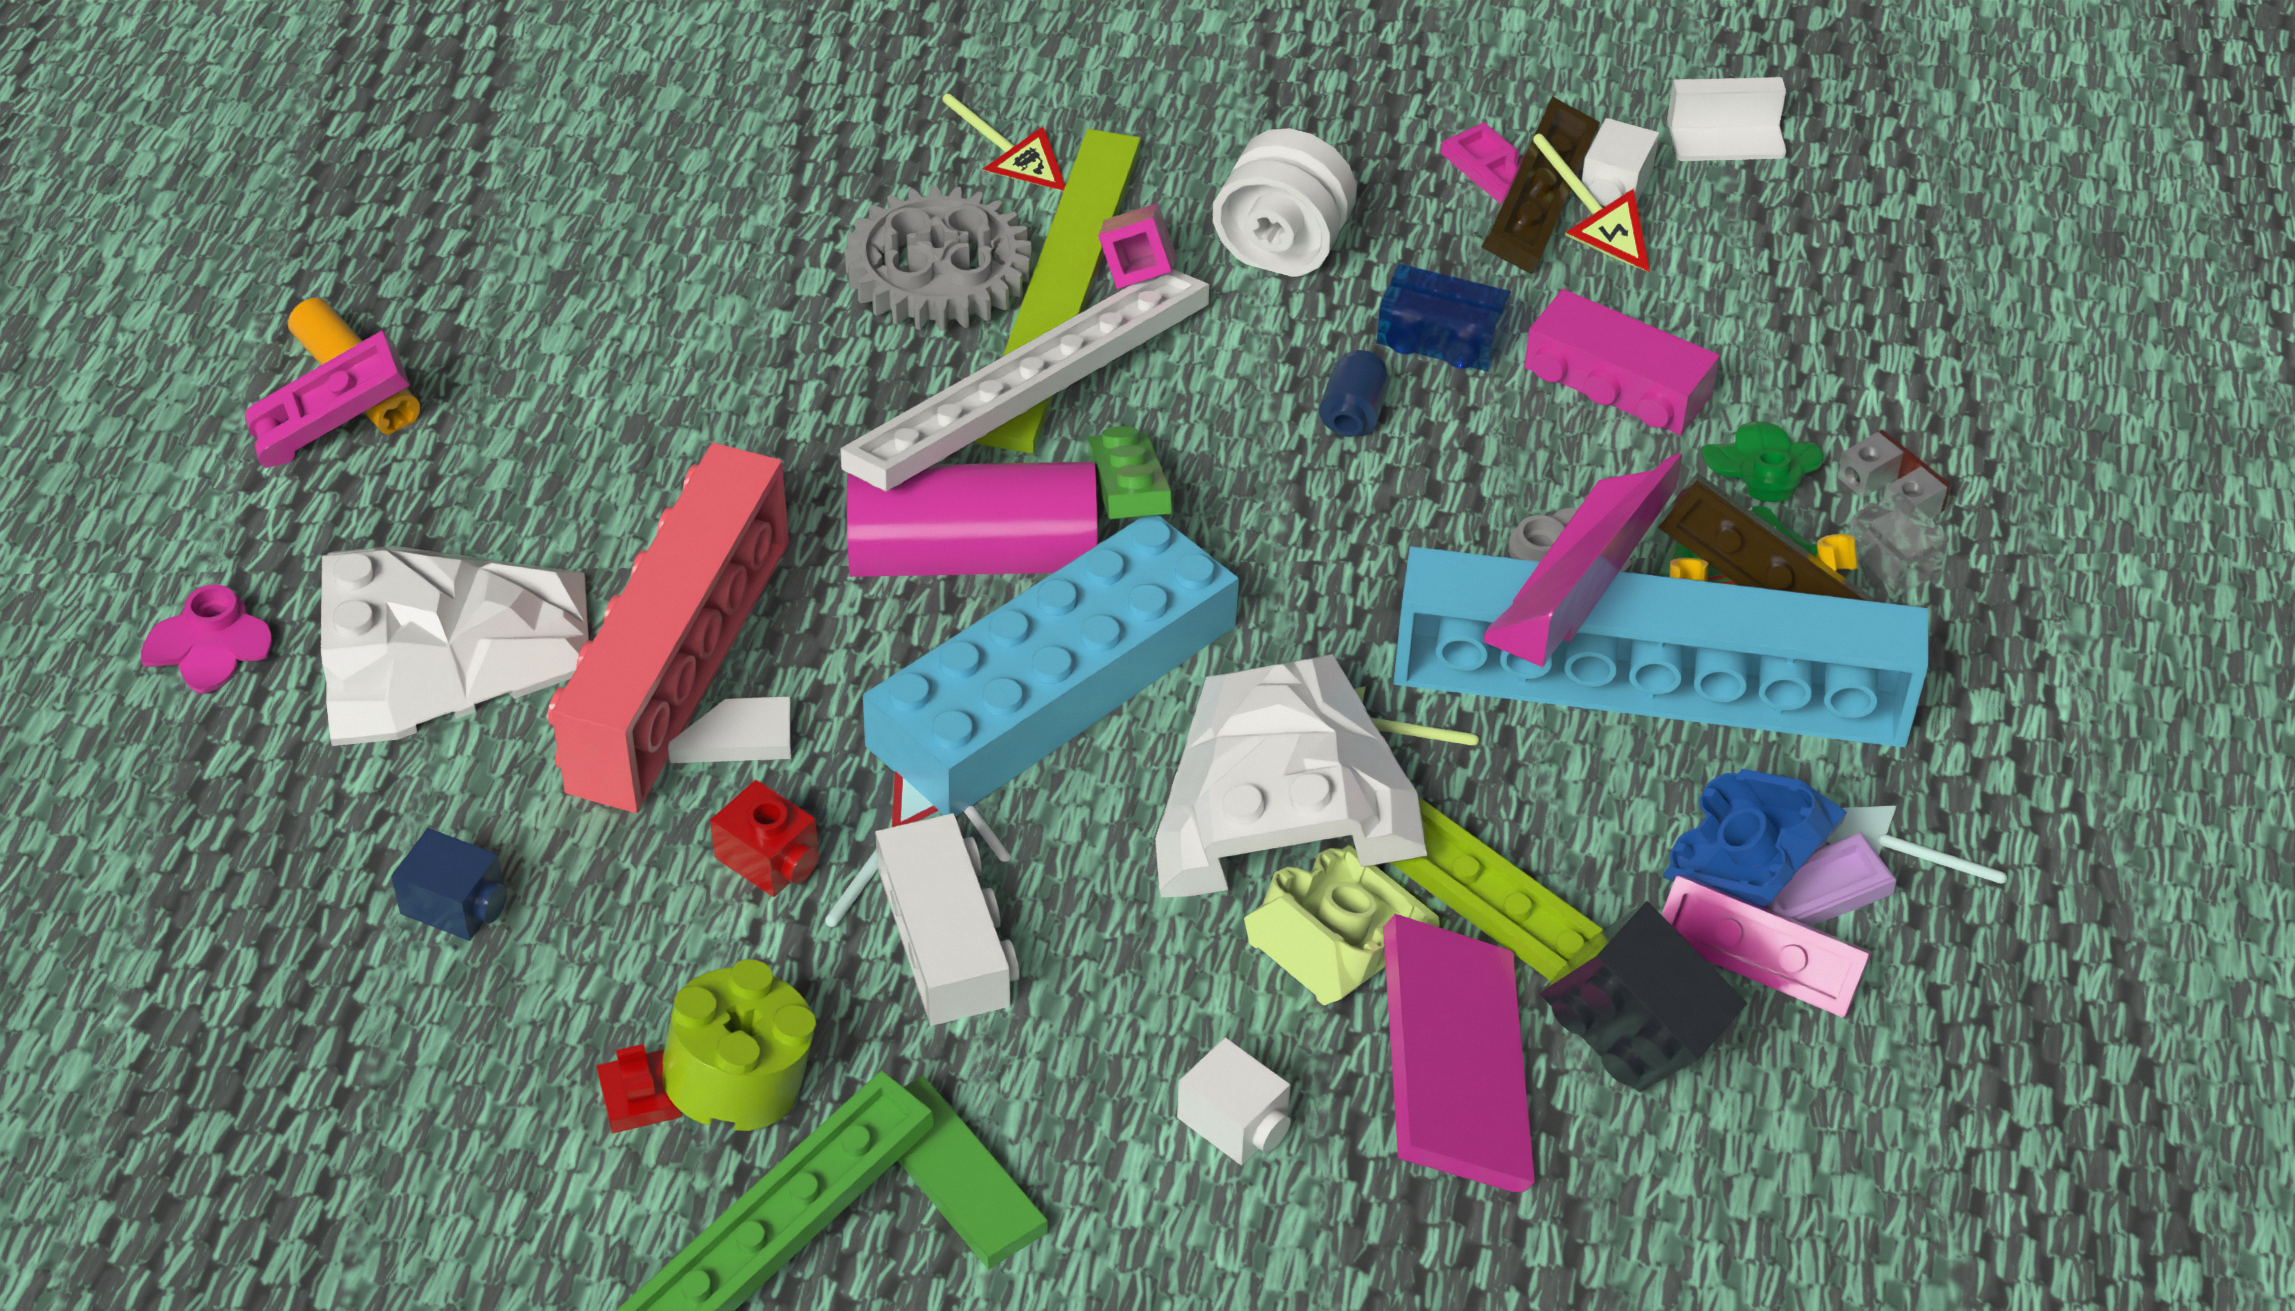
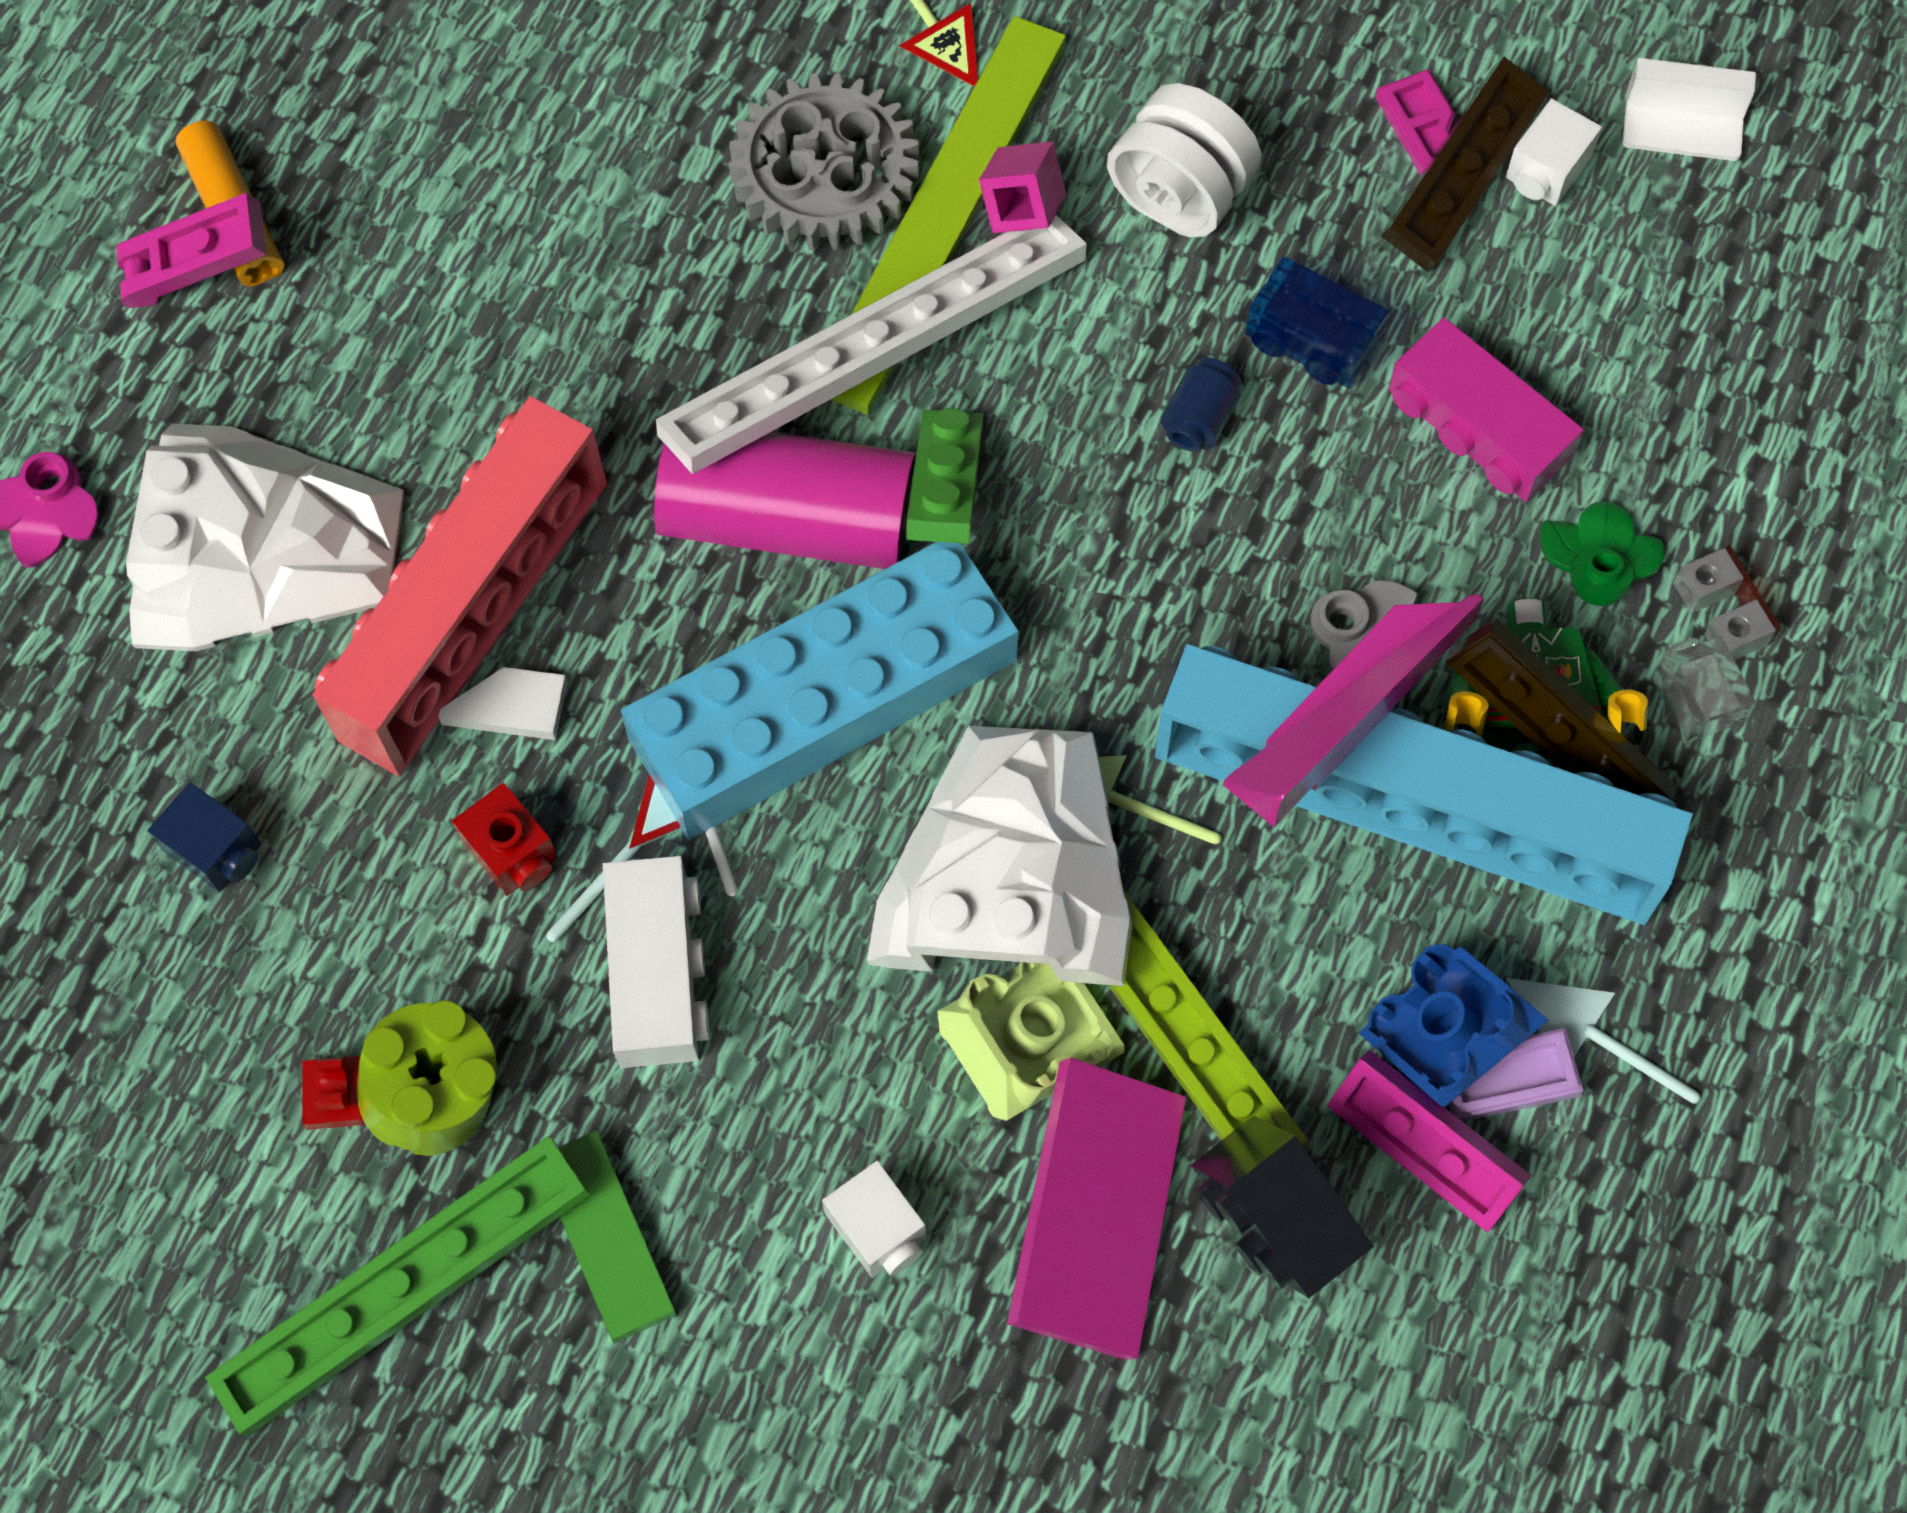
camera: 15 degrees right, 20 degrees up
(1610, 229) = (1527, 230): piece -> none

